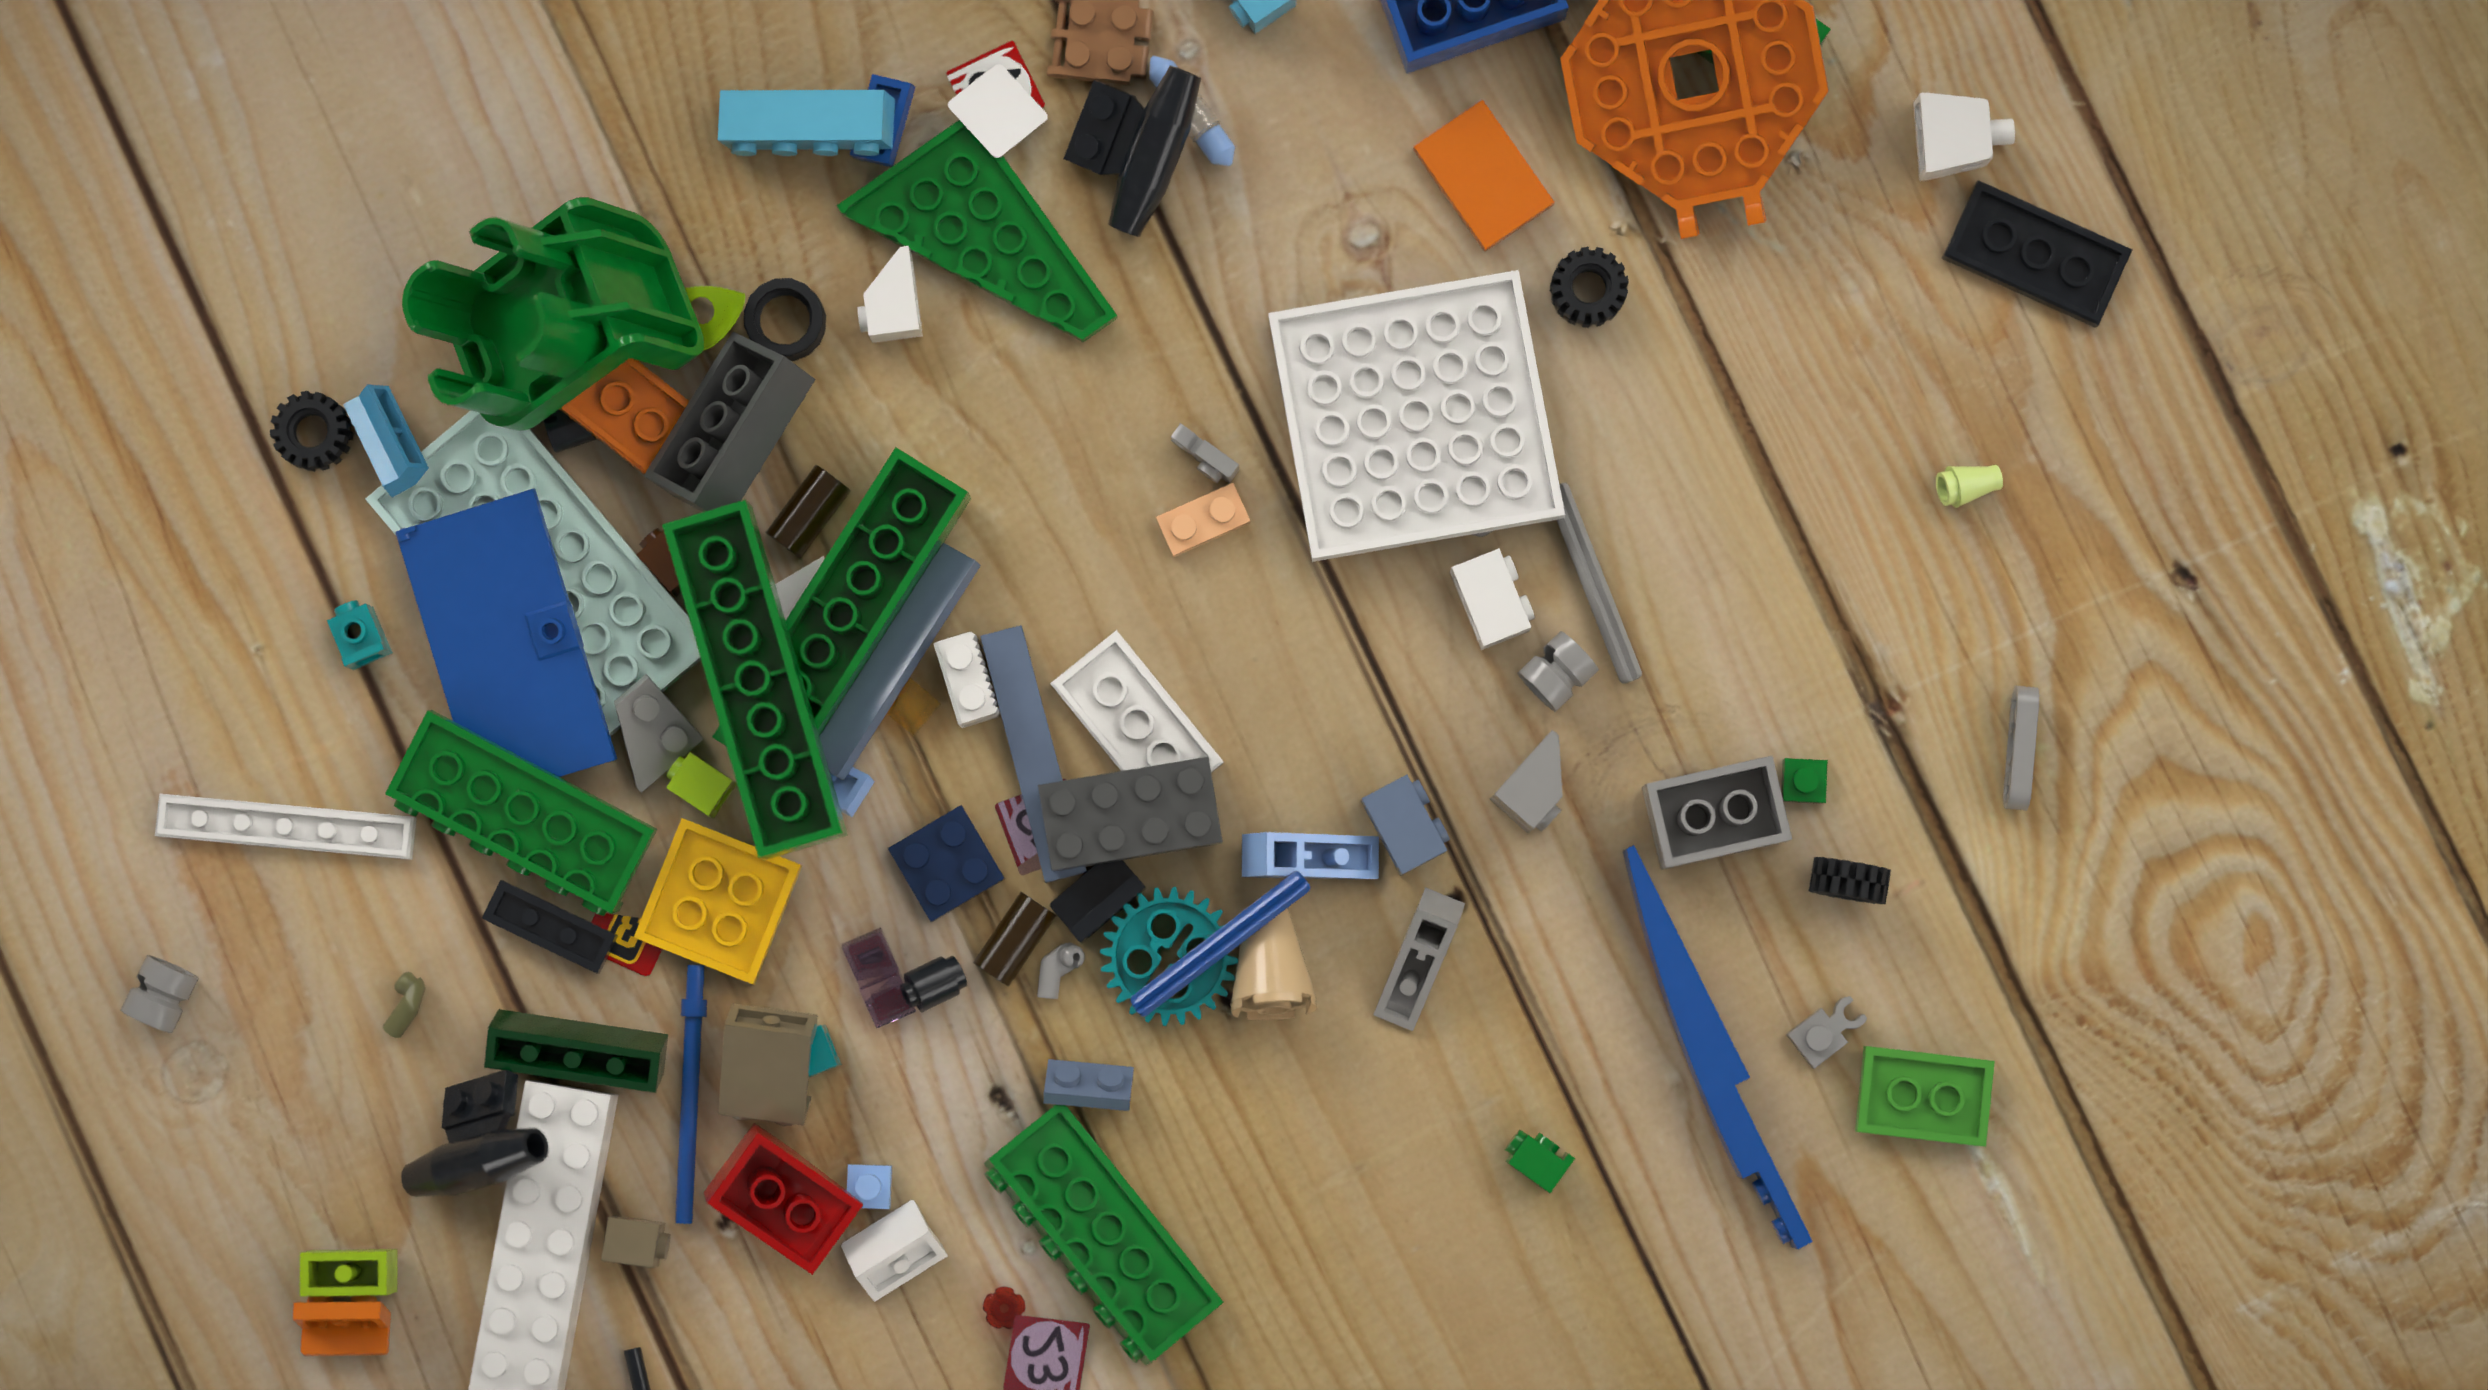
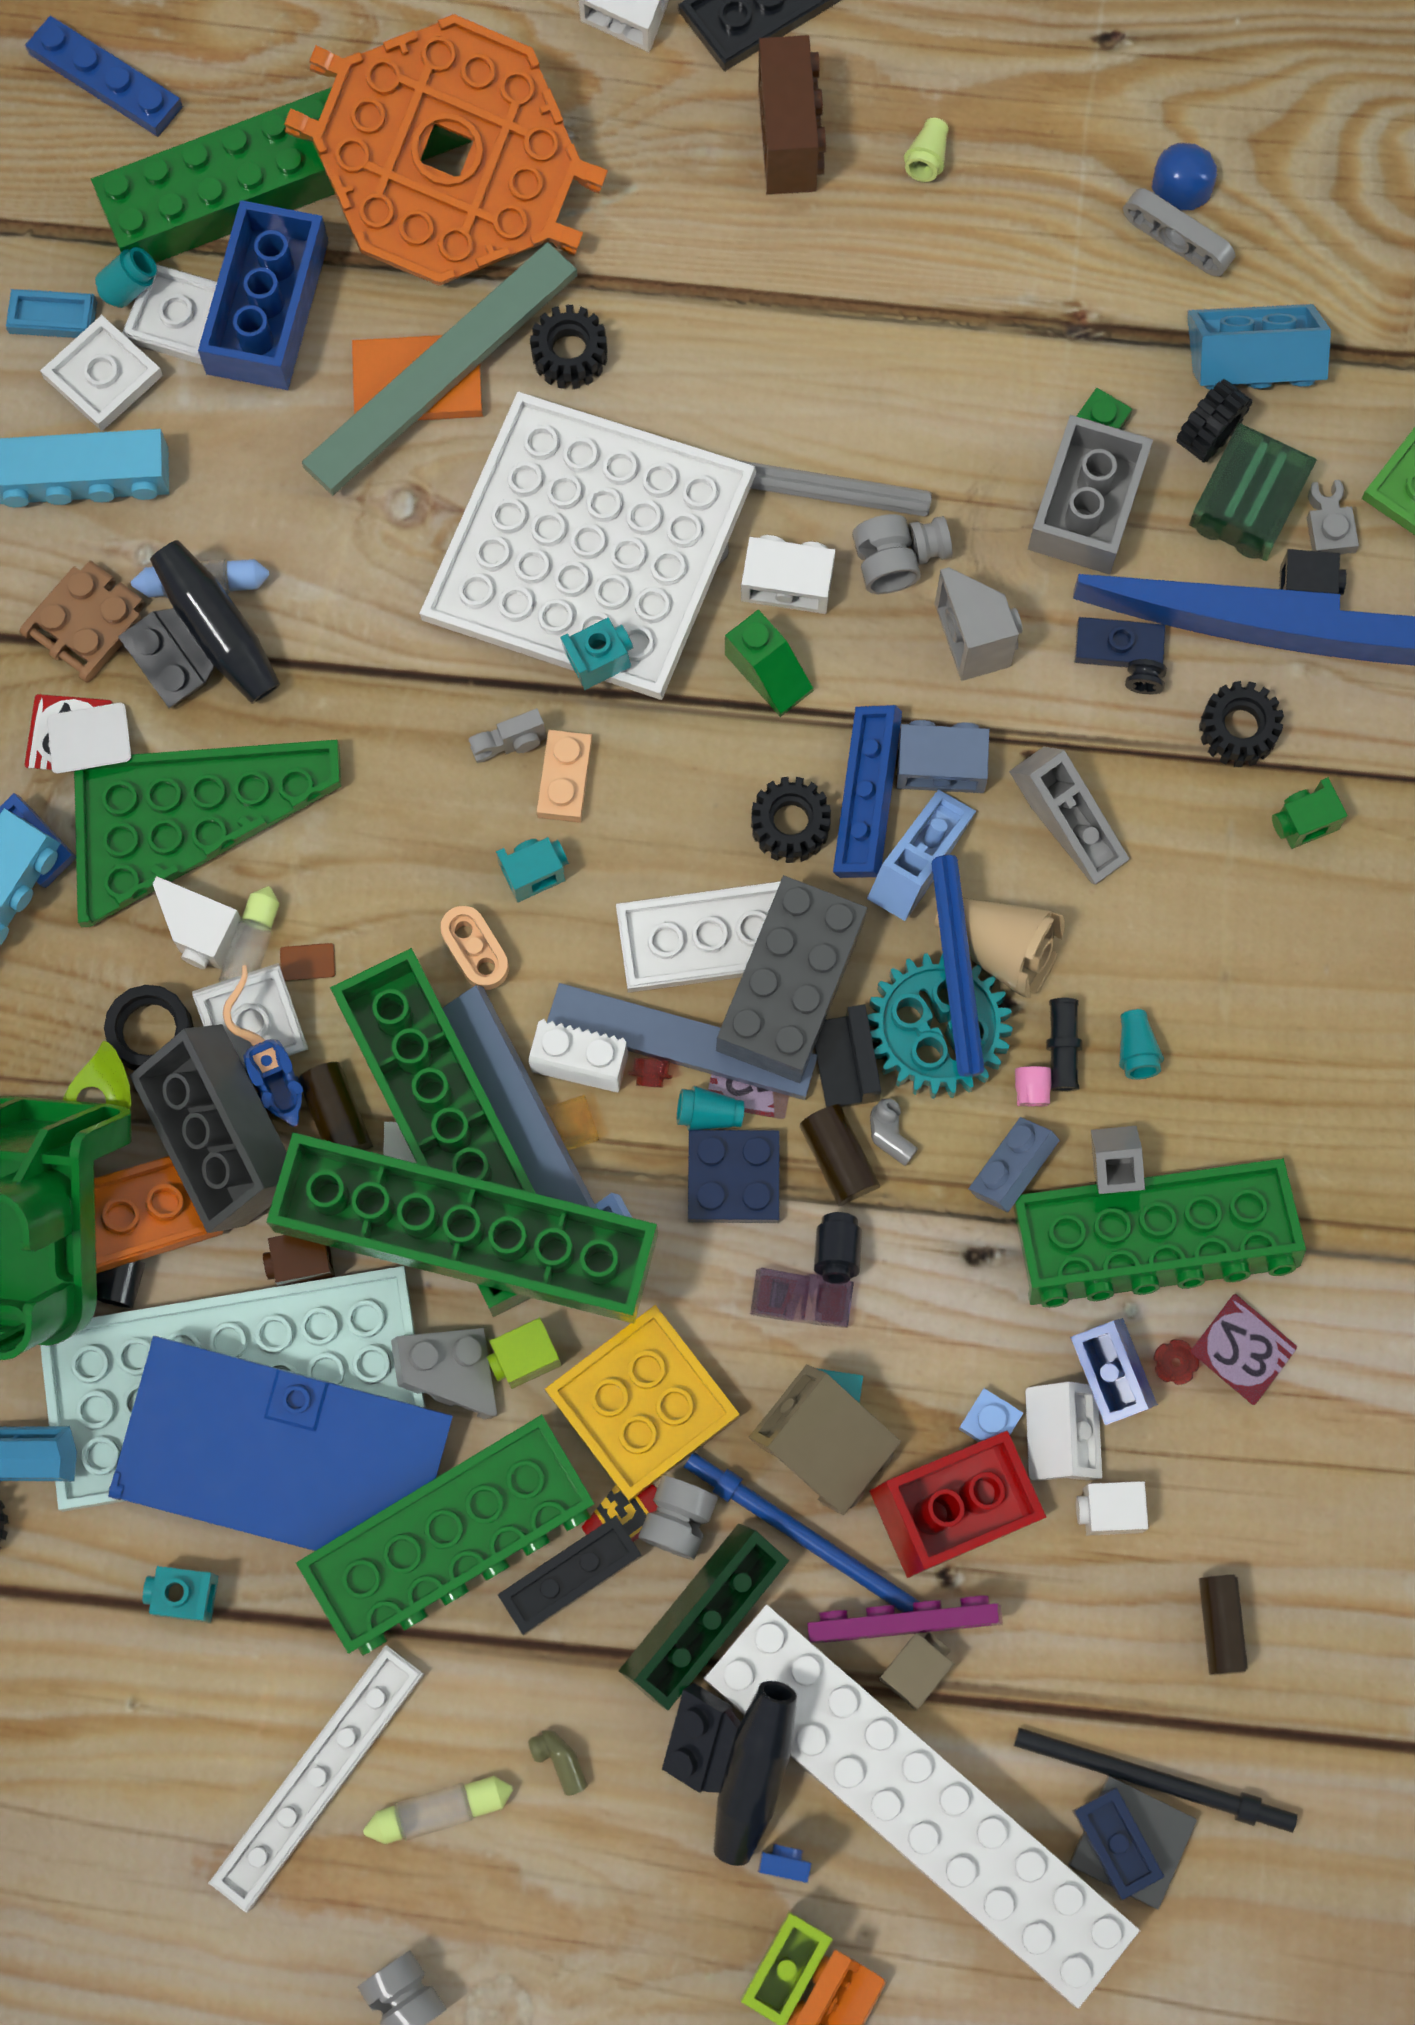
camera: 60 degrees left, 10 degrees down
(314, 934) = (438, 1810): none -> piece
(423, 1225) = (785, 1863): none -> blue plate
(641, 985) = (678, 1517): none -> light grey wheel
(674, 1224) = (883, 1621): none -> magenta plate
(805, 437) = (267, 1066): none -> blue animal
(843, 397) = (261, 1008): none -> white tile
(852, 1323) = (1113, 1508): none -> white brick
(895, 356) = (251, 934): none -> clear piece
(920, 408) = (307, 961): none -> dark orange sticker
(961, 1262) = (1114, 1371): none -> brick
(987, 810) = (708, 1110): none -> teal cone
(991, 744) = (650, 1072): none -> clear red plate
(1008, 538) = (475, 949): none -> light nougat plate
(1105, 543) = (533, 867): none -> teal brick
(1138, 1167) = (1117, 1159): none -> light grey brick
(1165, 1063) = (1033, 1086): none -> bright pink hose
(1215, 1068) = (1064, 1044): none -> black pin
(1250, 1130) = (1138, 1046): none -> teal cone
(1280, 704) = (790, 794): none -> black tyre
(1295, 488) = (595, 664): none -> teal brick
(1337, 779) = (867, 791): none -> blue plate
(1400, 631) = (767, 662): none -> green slope
(1500, 192) = (439, 369): none -> sand green tile
(1581, 953) = (1146, 676): none -> black bush
(1595, 700) = (931, 540): none -> light grey wheel
(1602, 914) = (1117, 642): none -> dark blue plate
(1614, 1053) = (1248, 700): none -> black tyre
(1757, 1044) = (1312, 572): none -> black brick
(1806, 950) = (1252, 492): none -> clear green brick
(1918, 346) = (790, 114): none -> reddish brown brick
(1953, 877) = (1259, 345): none -> dark azure slope
(2082, 721) = (1185, 176): none -> blue hair

